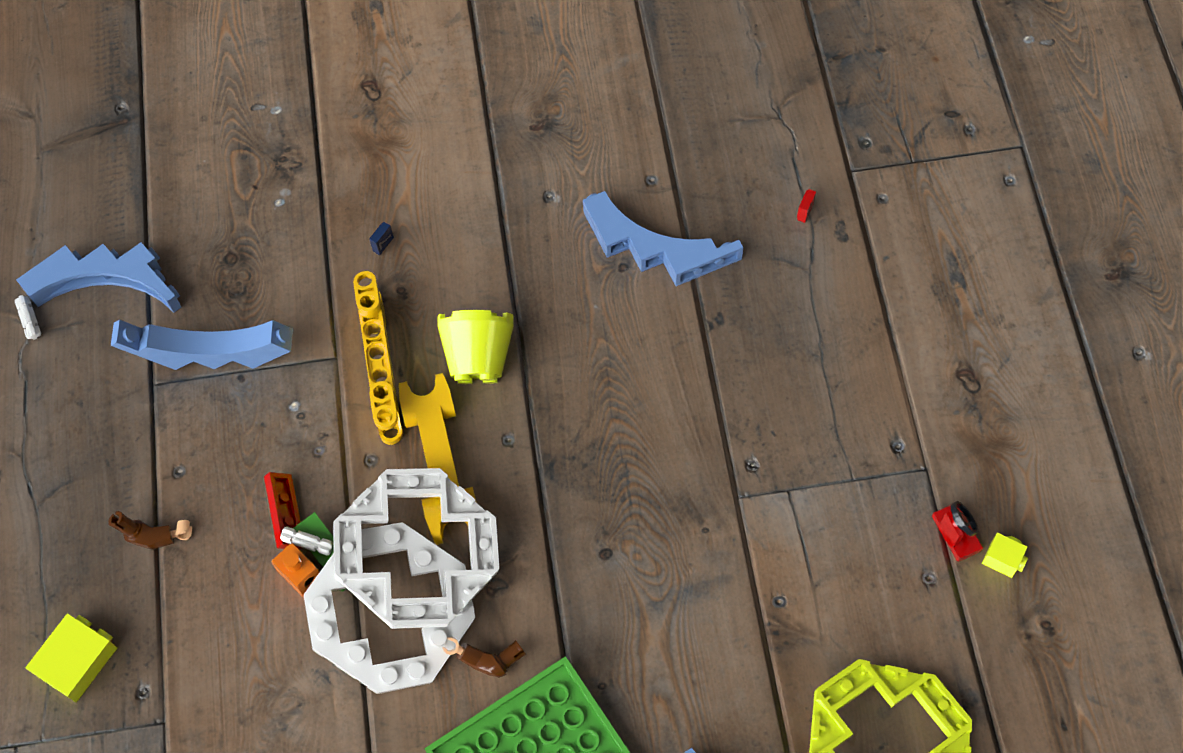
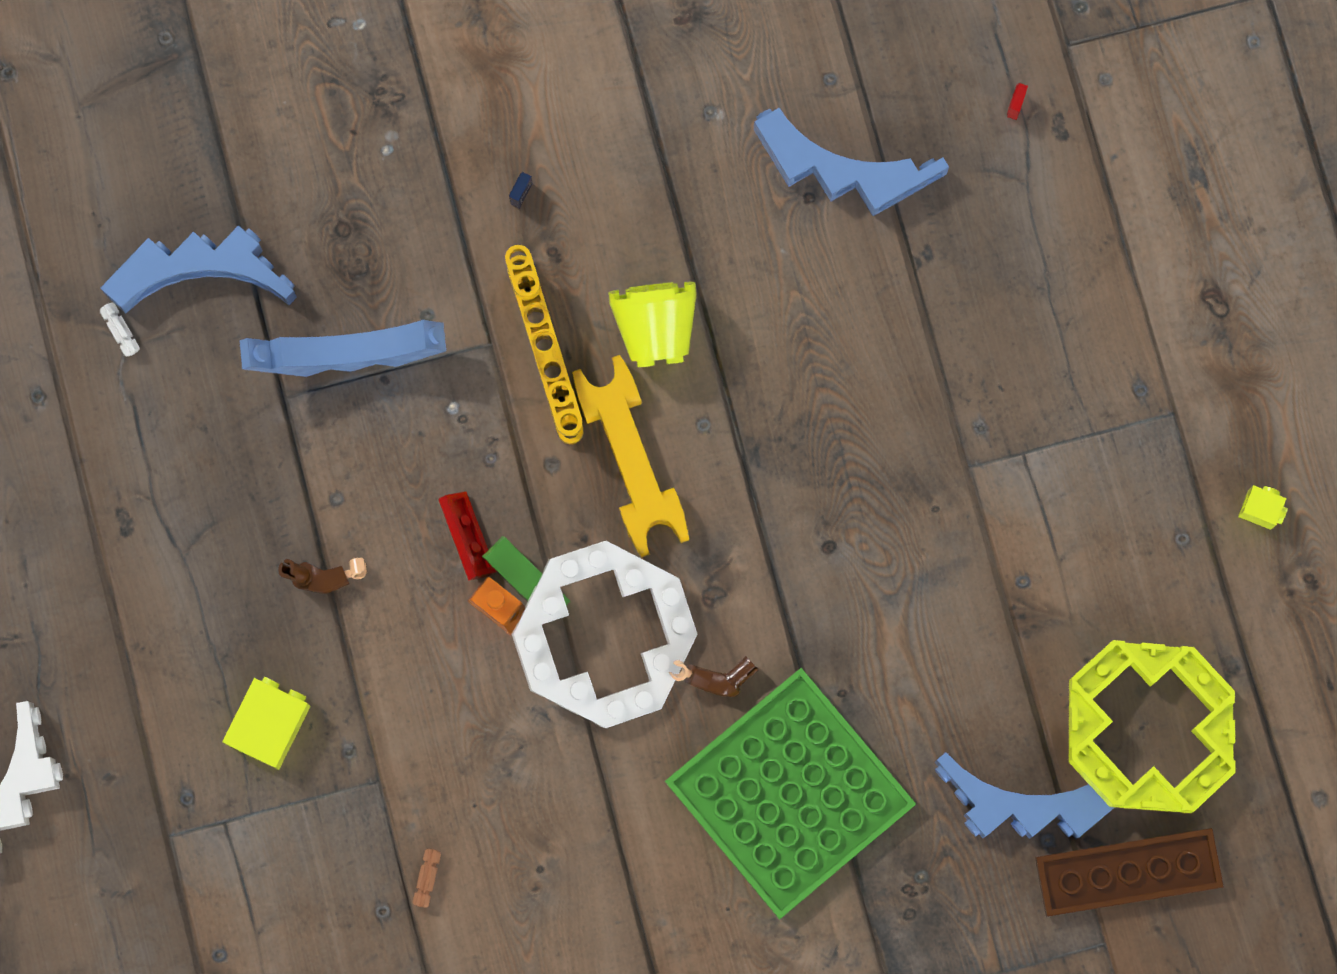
camera: 10 degrees left, 15 degrees up
(306, 541) = (503, 571): white axle -> none
(375, 588) = (592, 619): white plate -> none
(957, 530) = (1211, 484): red piece -> none

